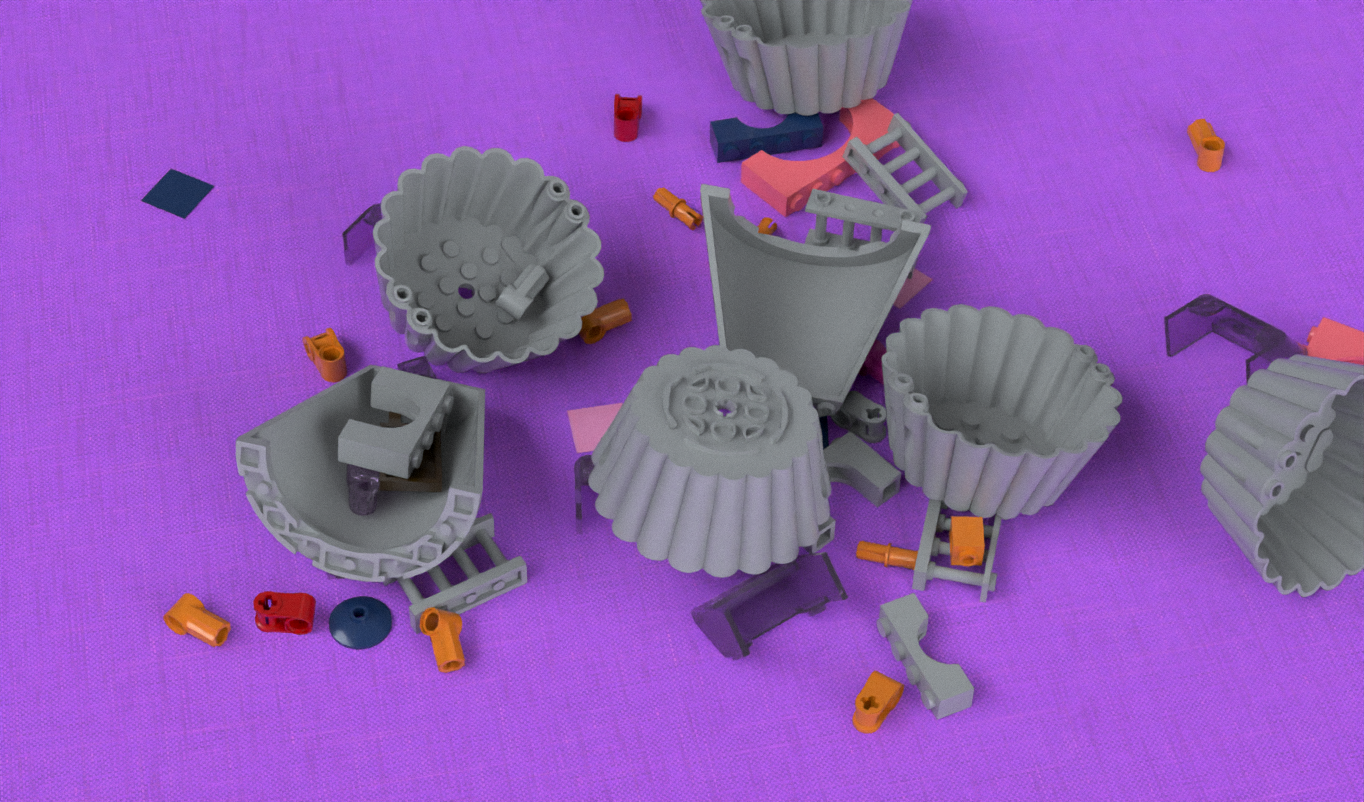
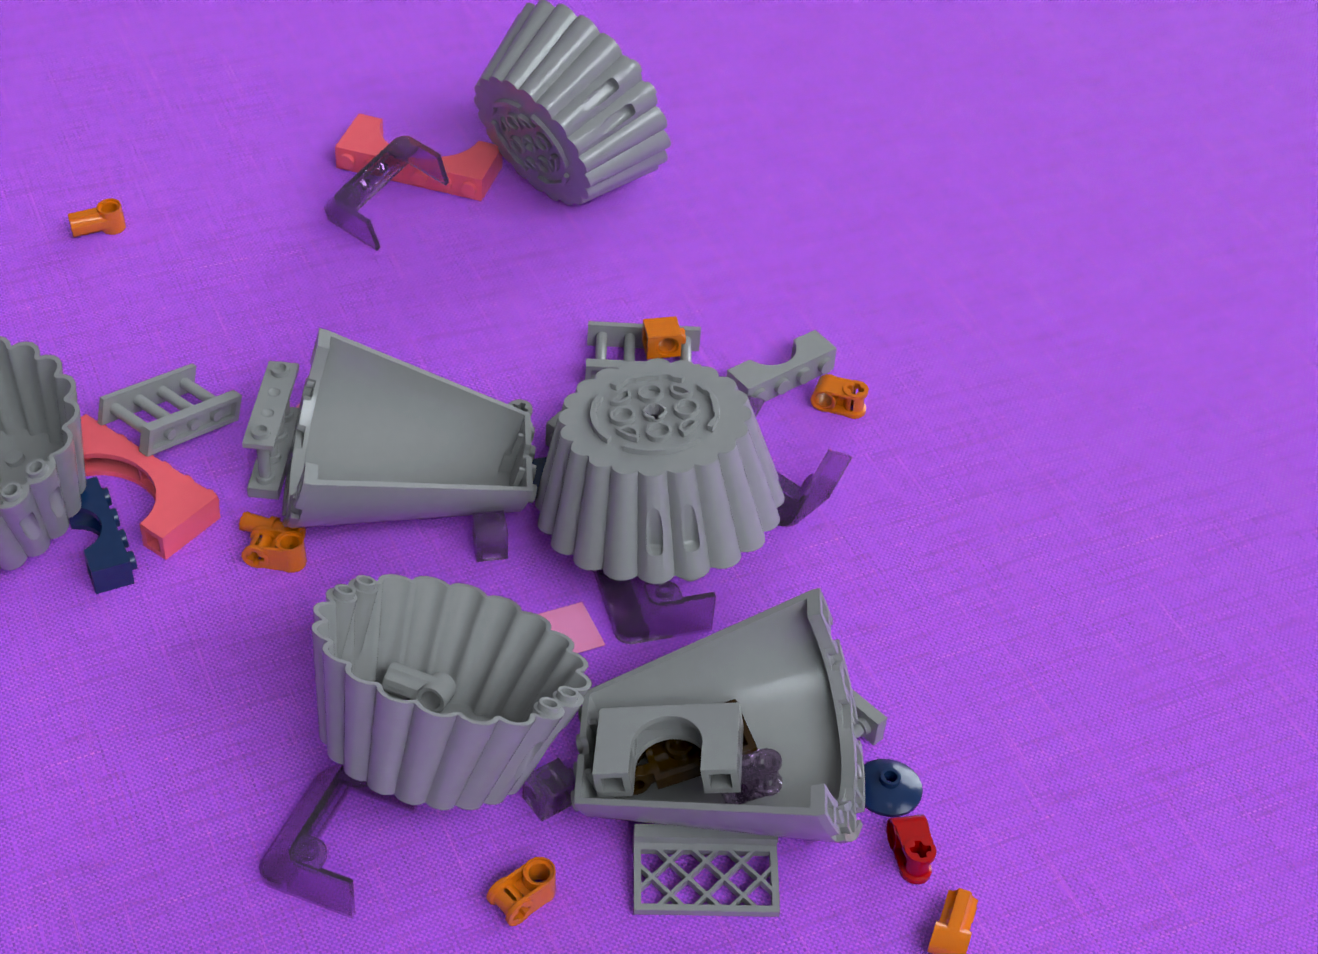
camera: 105 degrees left, 5 degrees down
(444, 634) = (898, 697): orange piece -> none
(627, 117) = (67, 663): red piece -> none
(677, 208) = (226, 599): orange axle -> none
(993, 408) = (539, 294): light grey container -> none

